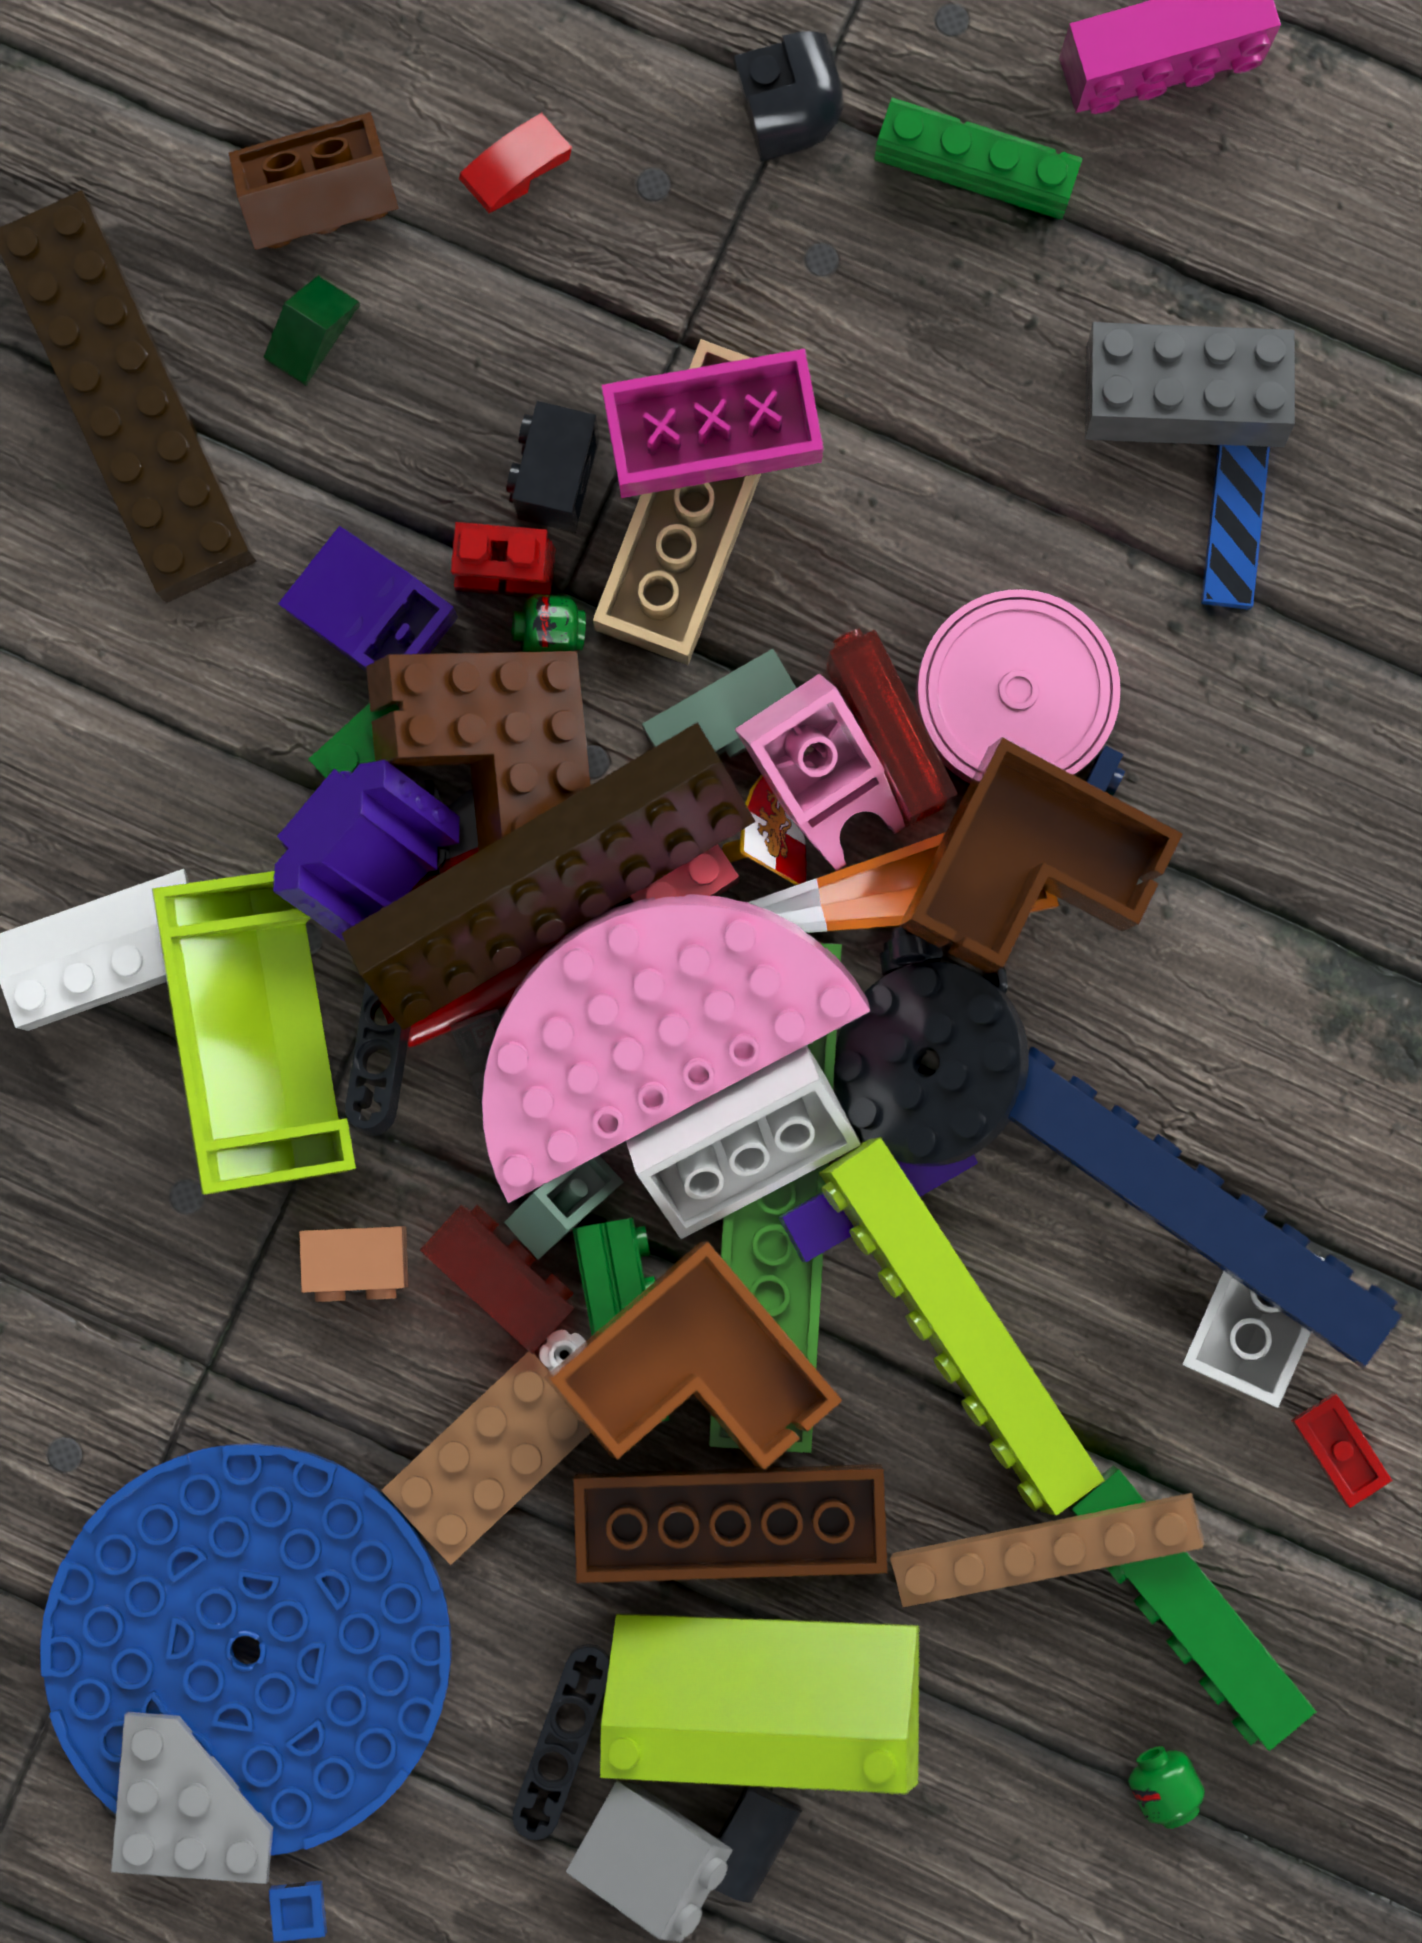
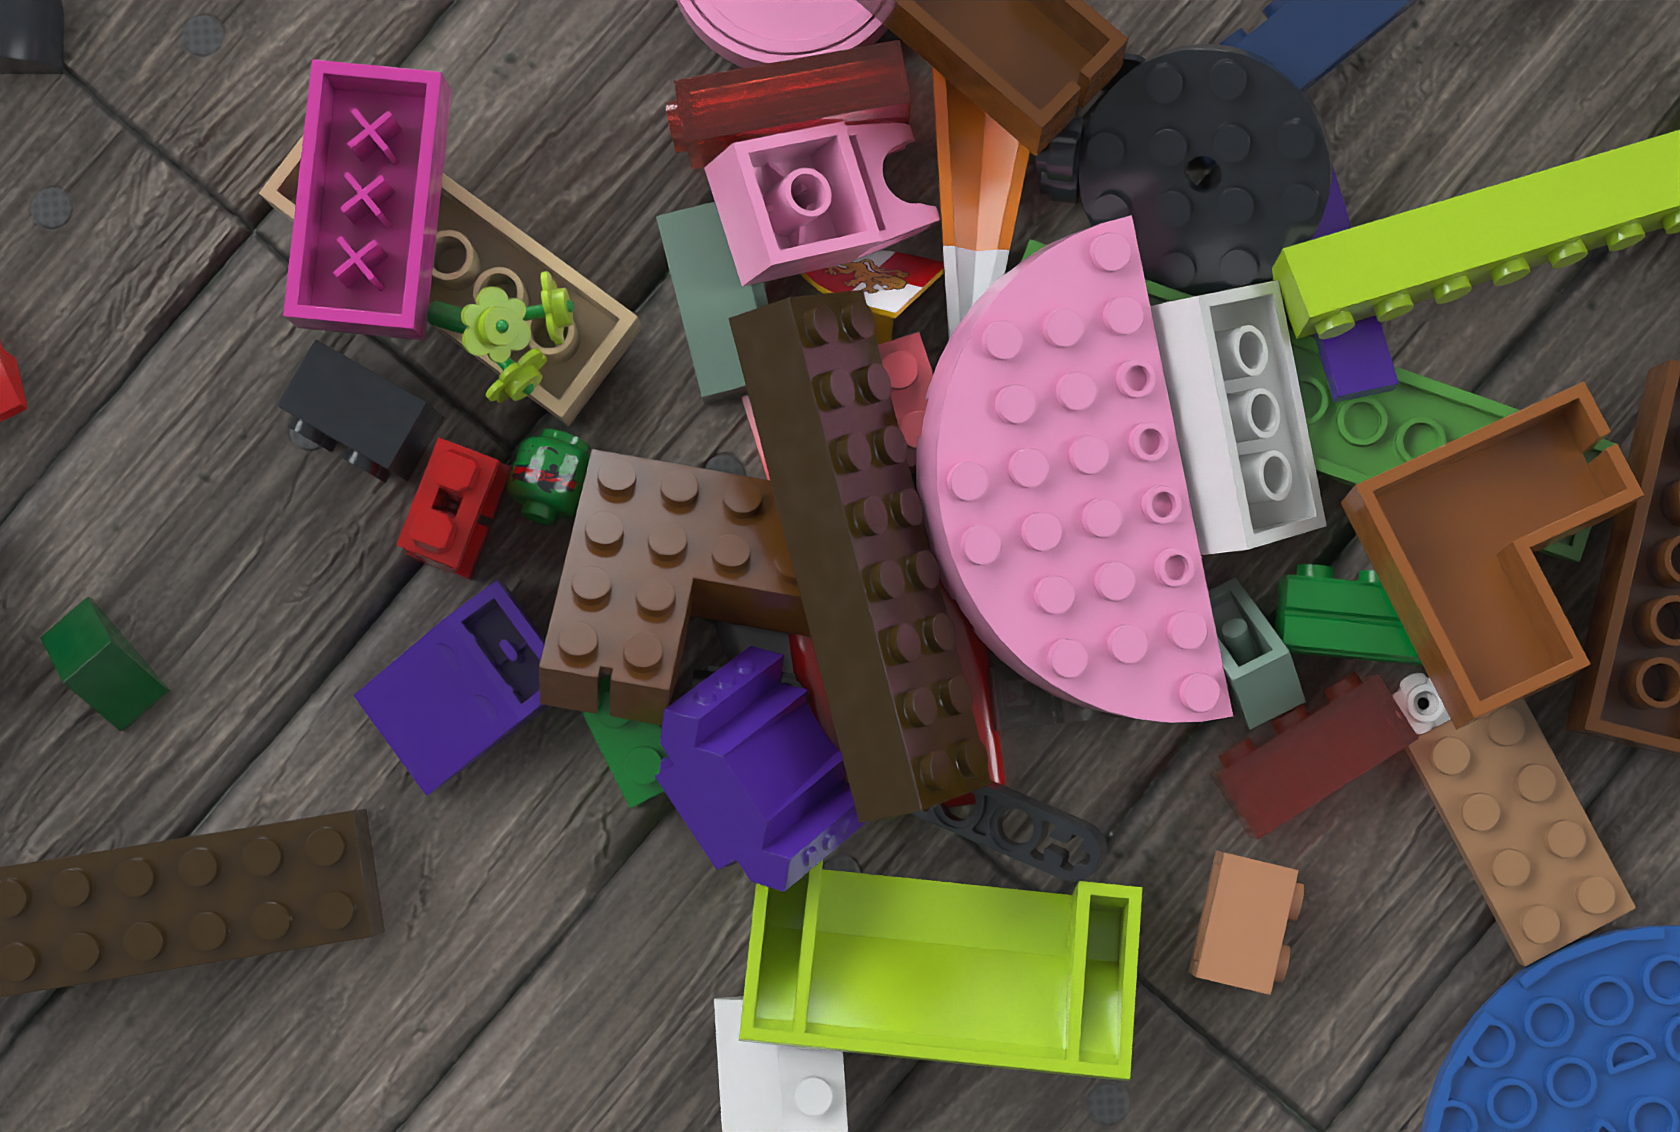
camera: 75 degrees left, 0 degrees up
(641, 548) = (499, 325): none -> lime plant

